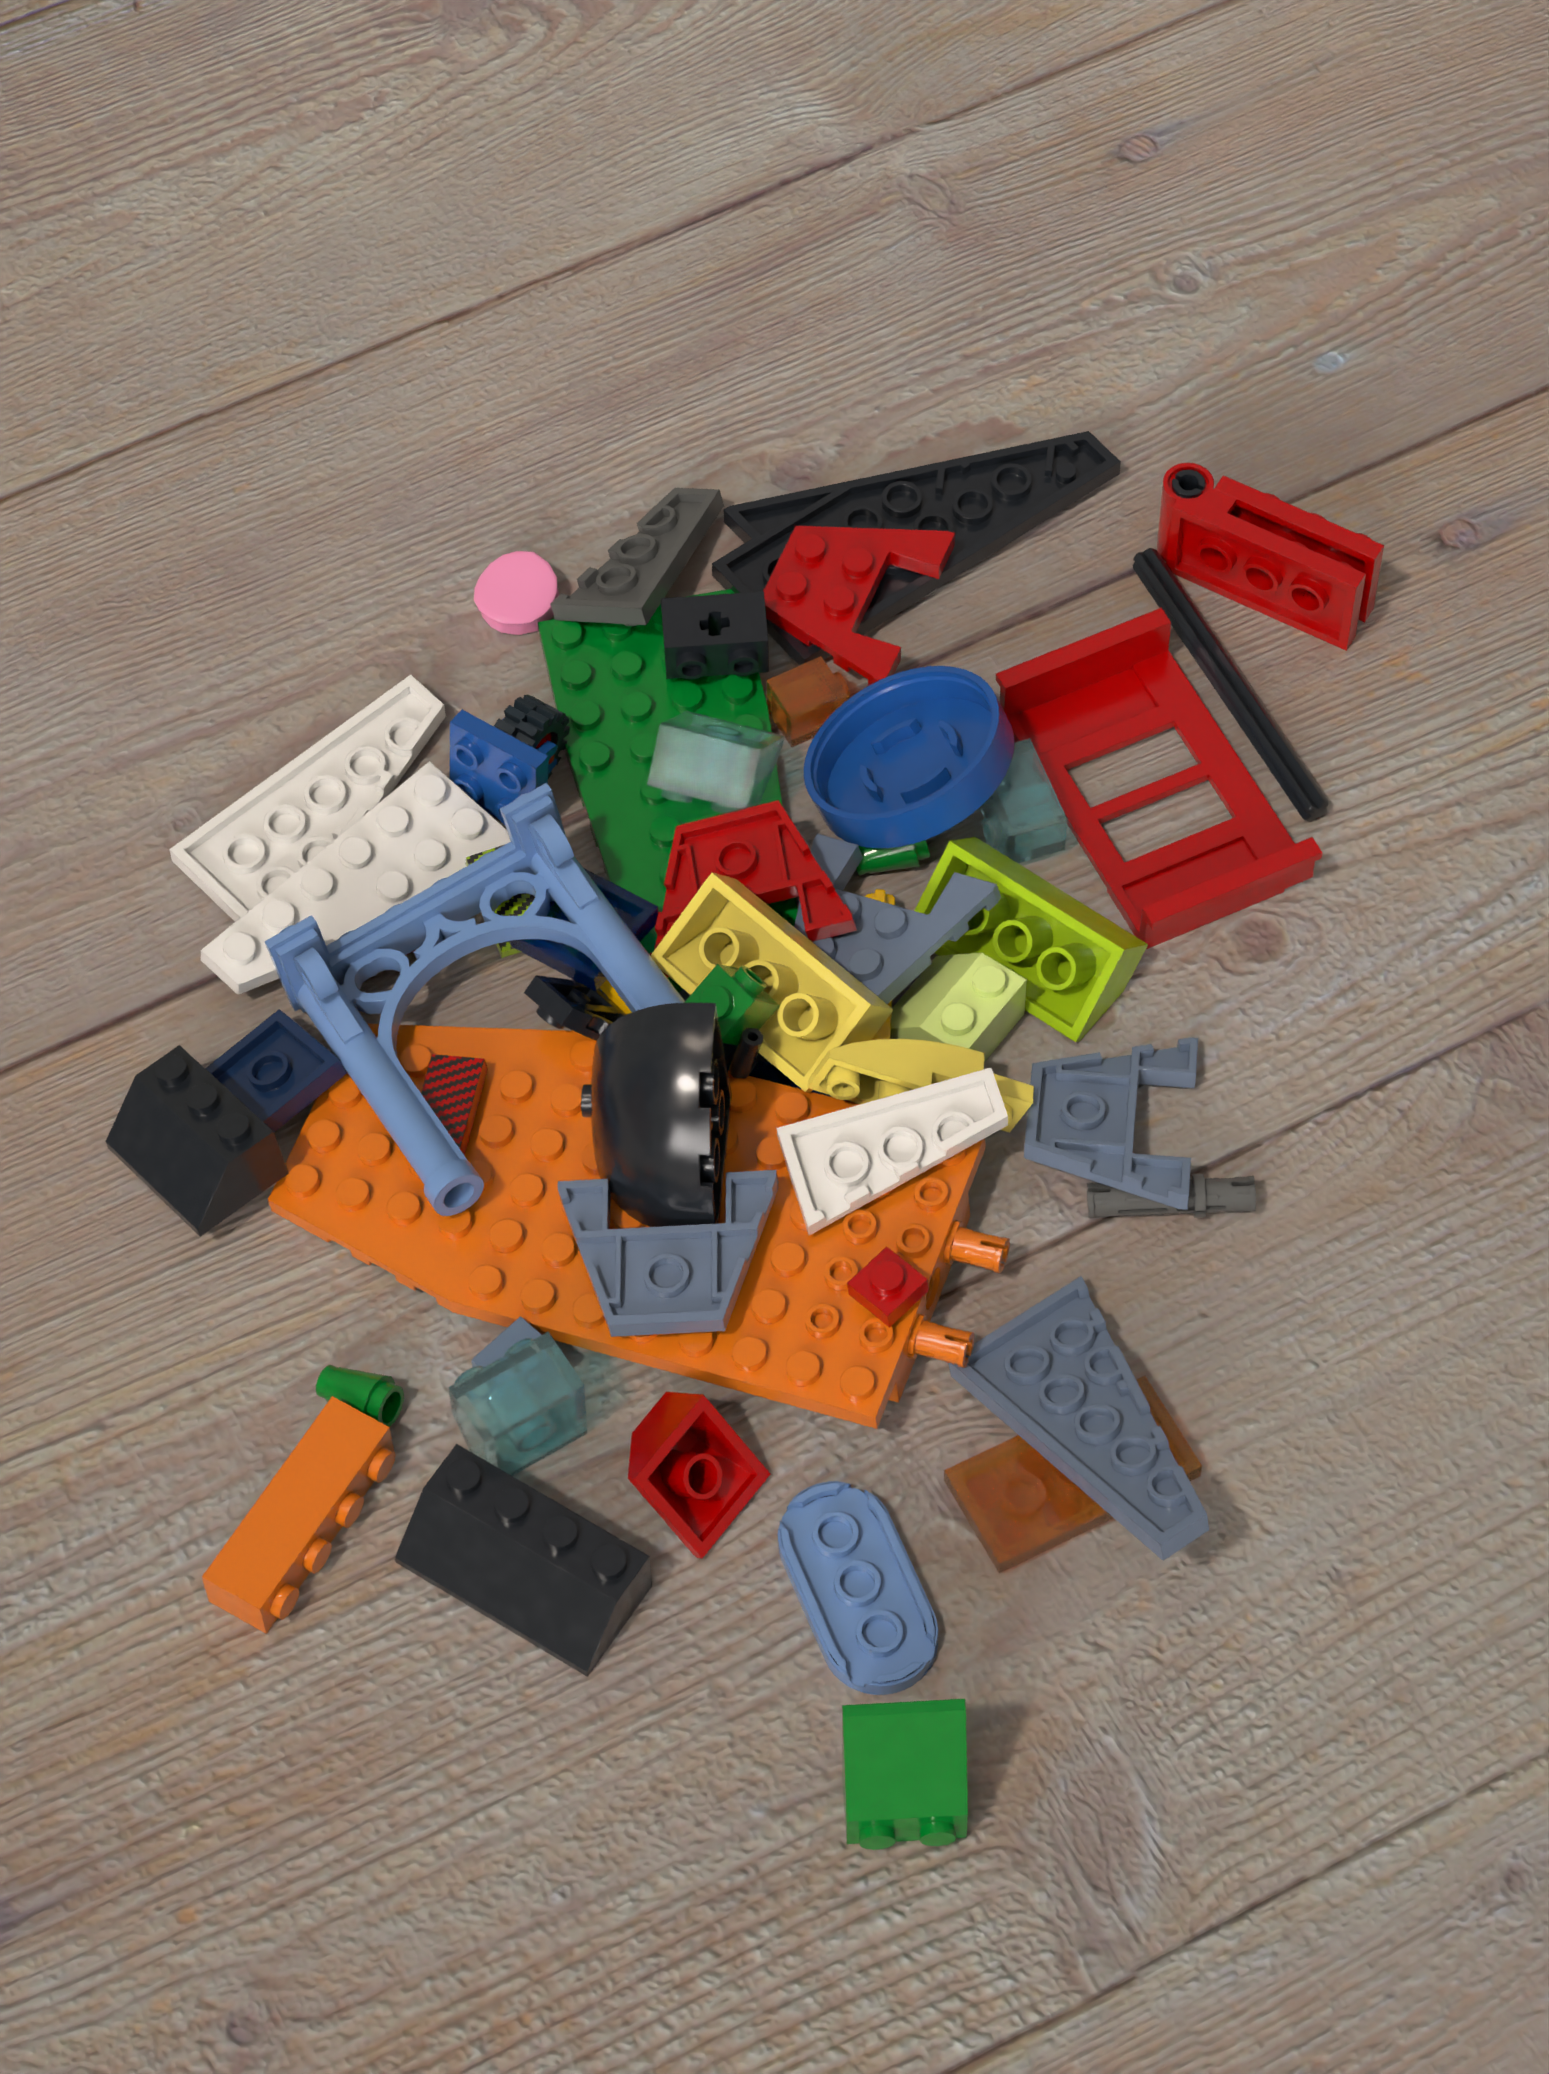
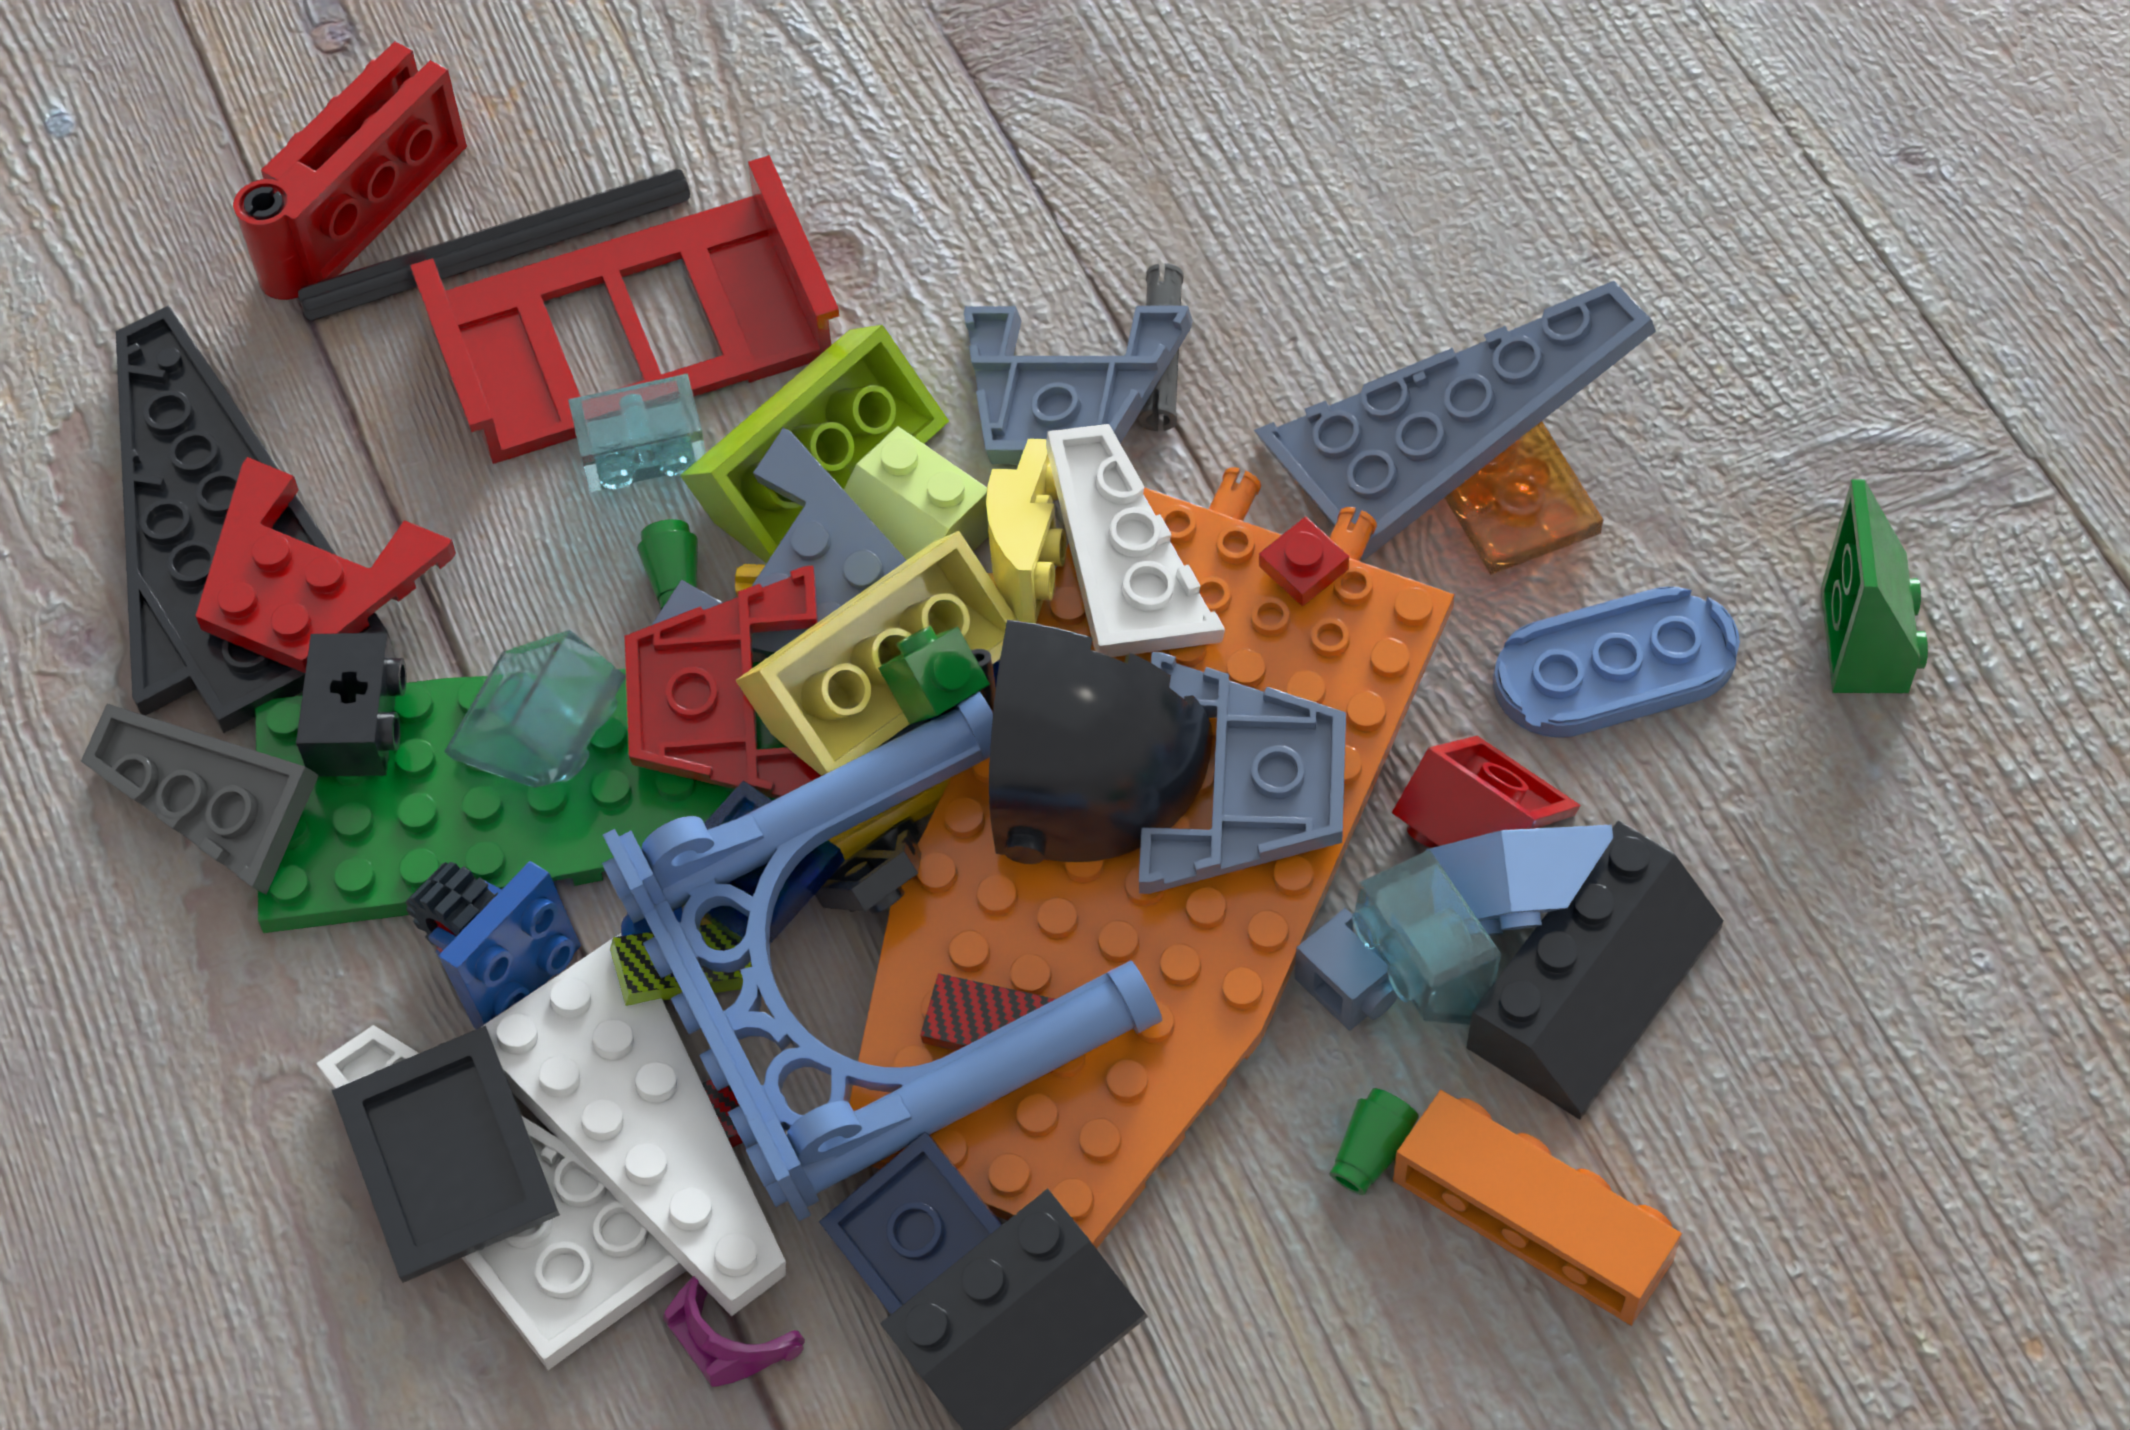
camera: 85 degrees left, 0 degrees up
(182, 962) = (716, 1356): none -> magenta helmet
(327, 758) = (444, 1154): none -> black piece
(516, 592) = (205, 943): bright pink piece -> none
(588, 1477) = (1522, 872): none -> light blue slope
(805, 699) = (447, 632): clear orange brick -> none
(909, 757) = (572, 514): blue piece -> none

